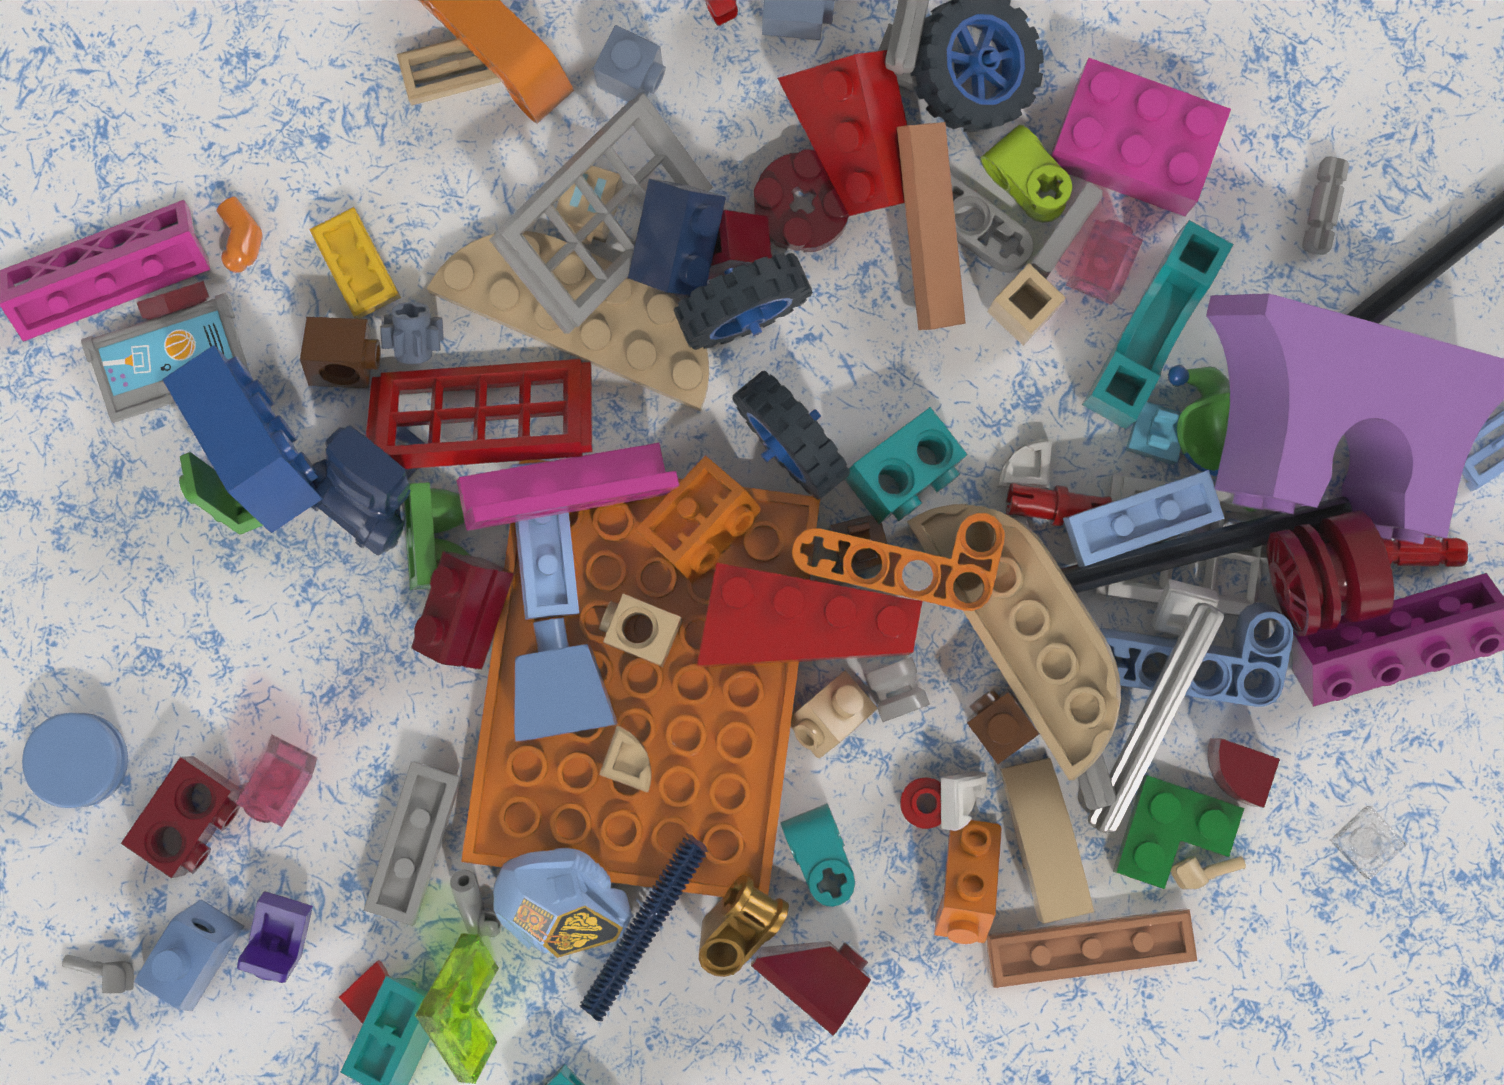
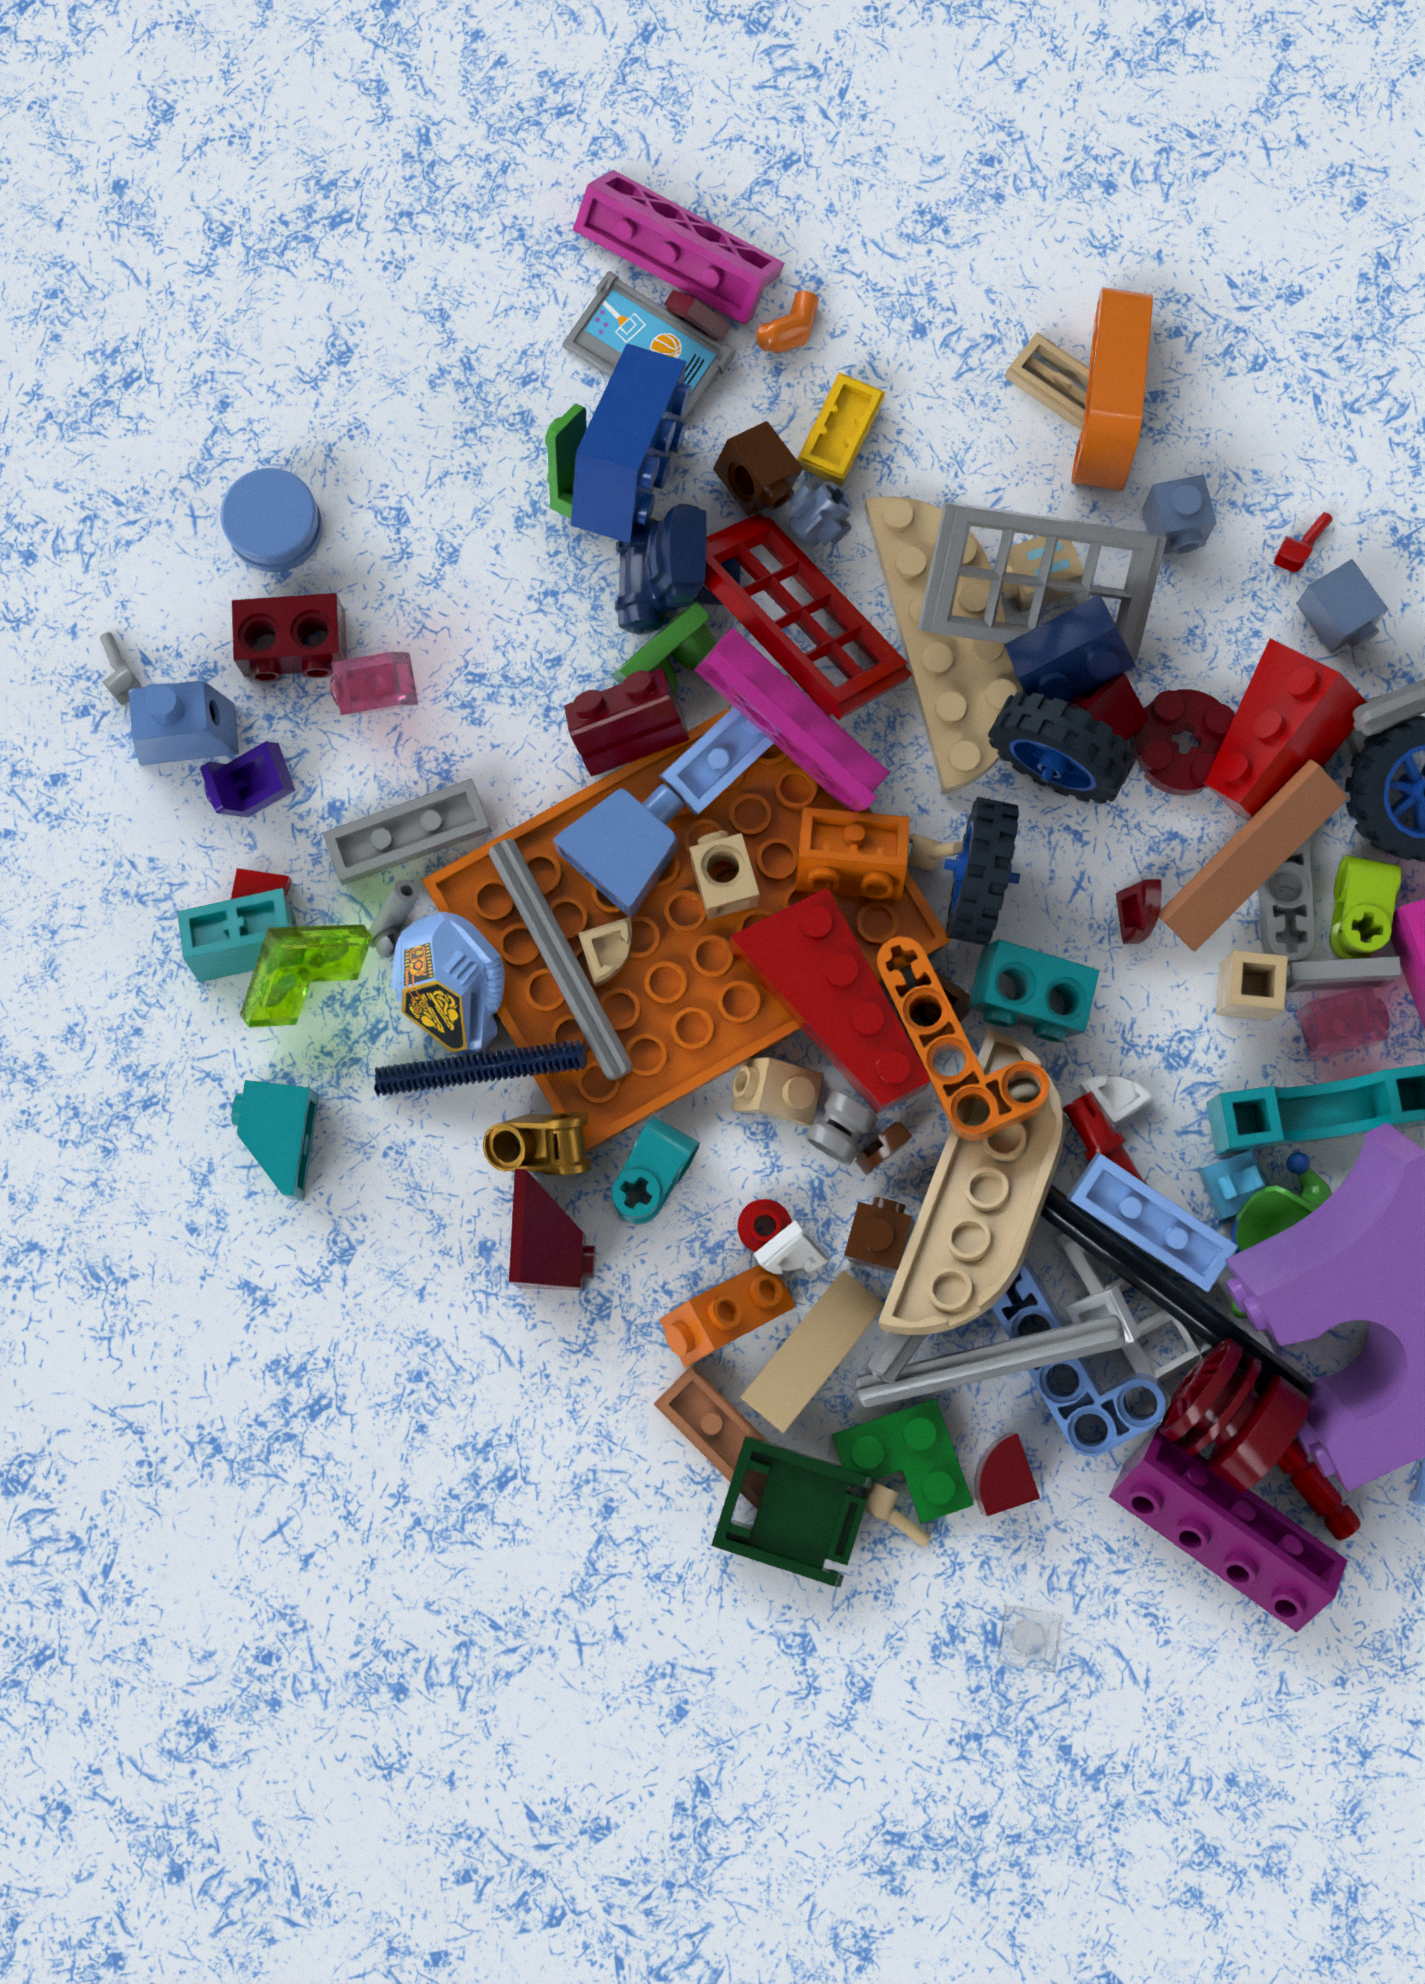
camera: 55 degrees right, 5 degrees down
(608, 803) = (560, 960): none -> light grey axle
(739, 458) = (927, 852): none -> tan hand
(904, 339) = (1139, 910): none -> dark red tile
(935, 669) = (882, 1148): none -> reddish brown tile
(1159, 942) = (800, 1515): none -> dark green container

